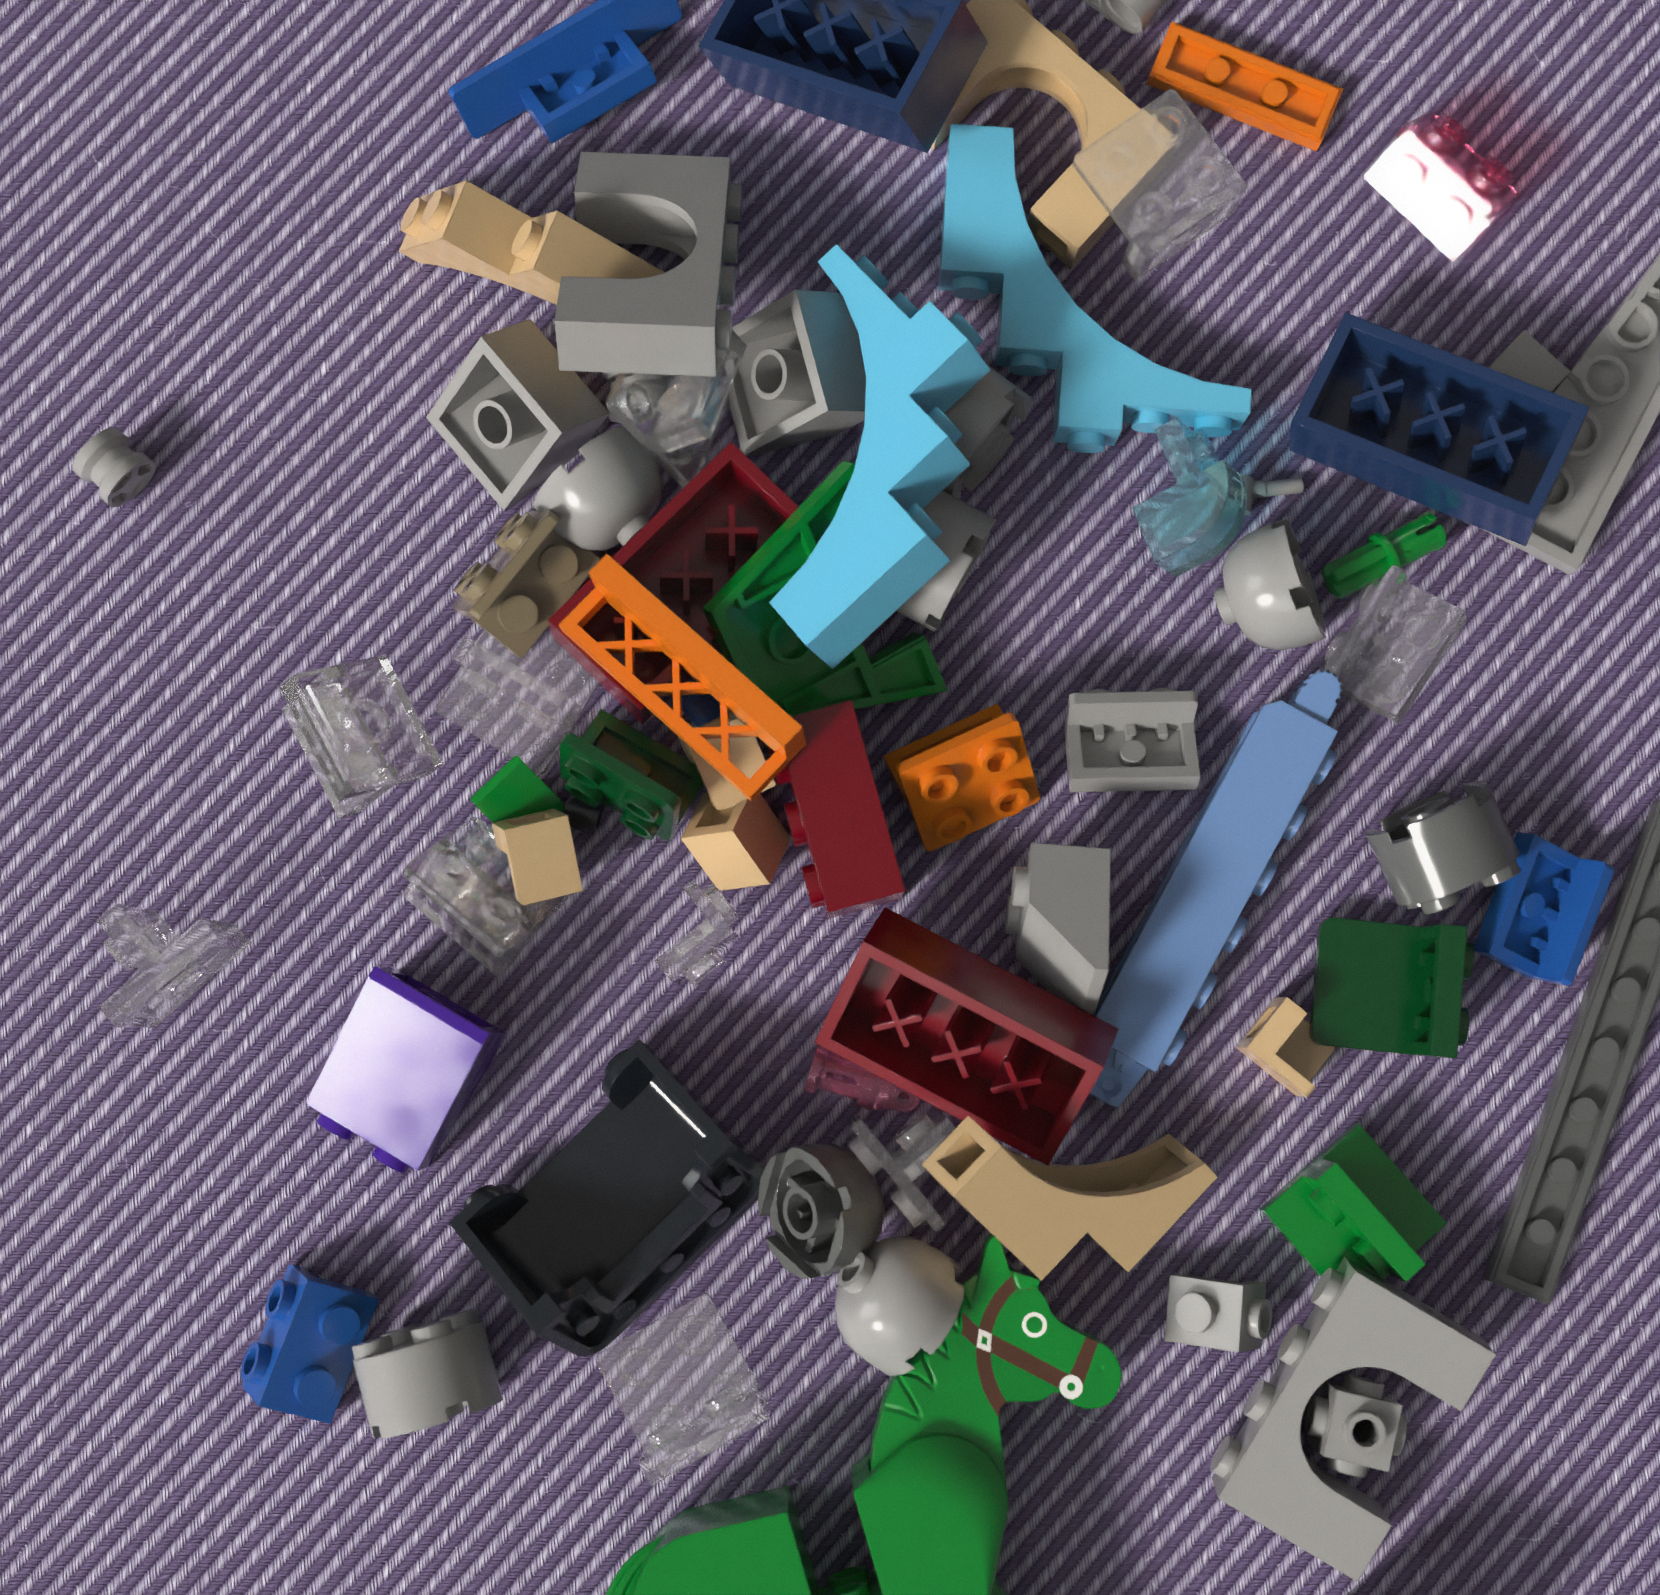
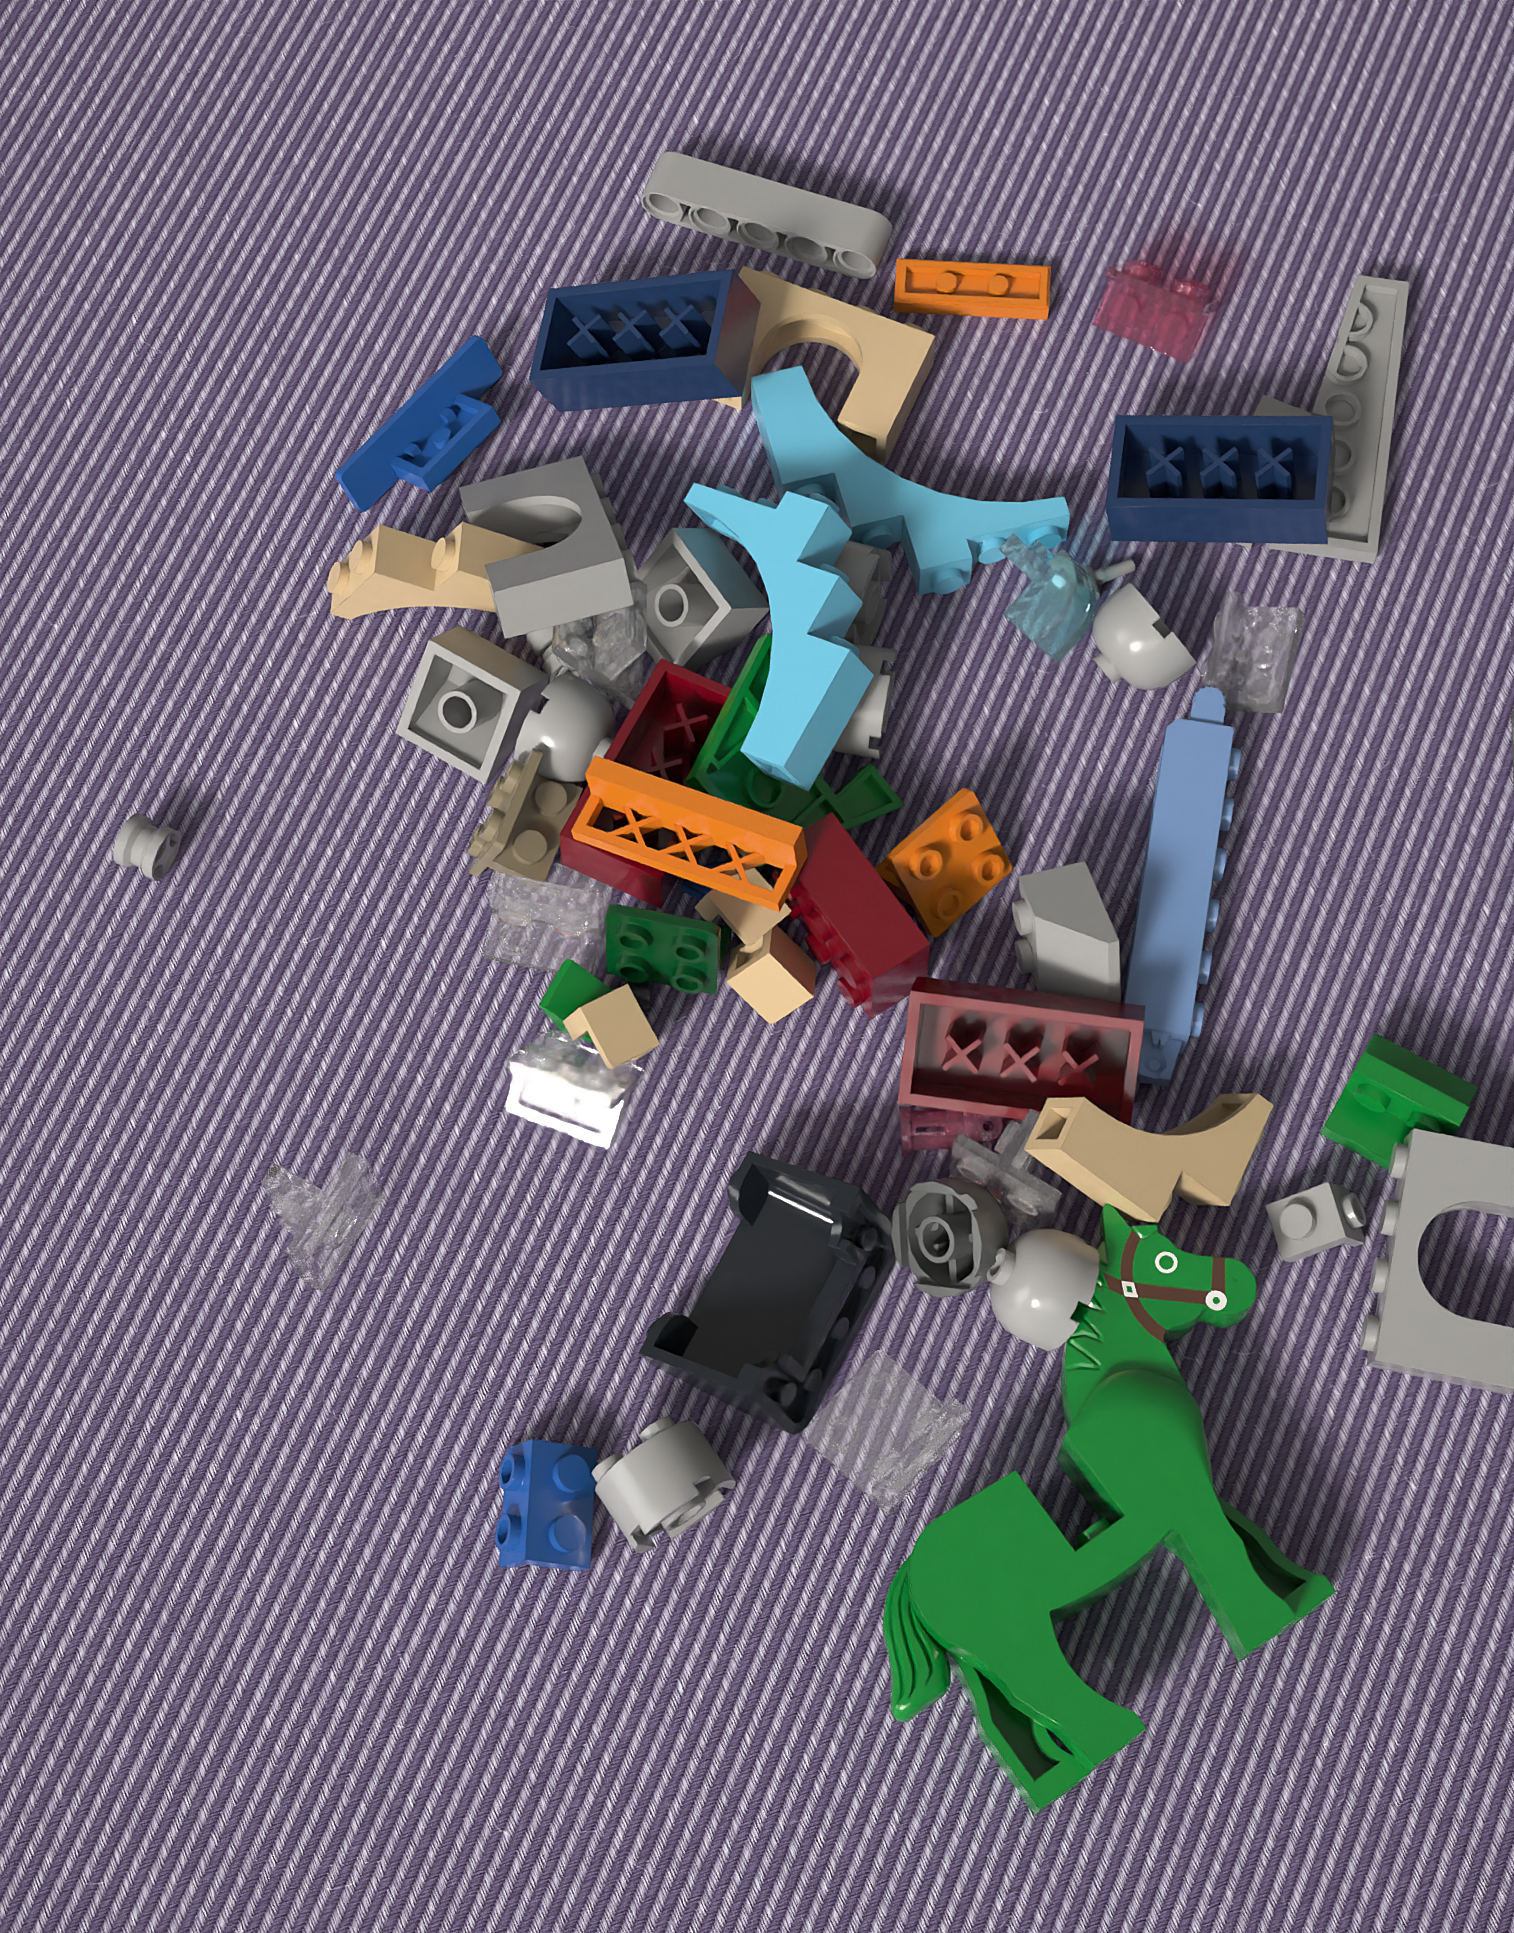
camera: 15 degrees left, 15 degrees down
(358, 731) = (421, 990): clear bracket -> none
(403, 1069) = (556, 1238): slope -> none
(698, 952) = (772, 1061): clear bracket -> none
(1131, 741) = (1069, 792): light grey bracket -> none
(1160, 181) = (935, 371): clear bracket -> none
(1283, 1046) = (1290, 993): tan panel -> none
(1335, 1412) = (1454, 1282): light grey brick -> none
(1380, 553) = (1204, 605): green axle -> none
(1391, 987) = (1357, 916): dark green bracket -> none
(1444, 847) = (1355, 789): dark grey brick -> none
(1545, 912) = (1455, 817): blue bracket -> none

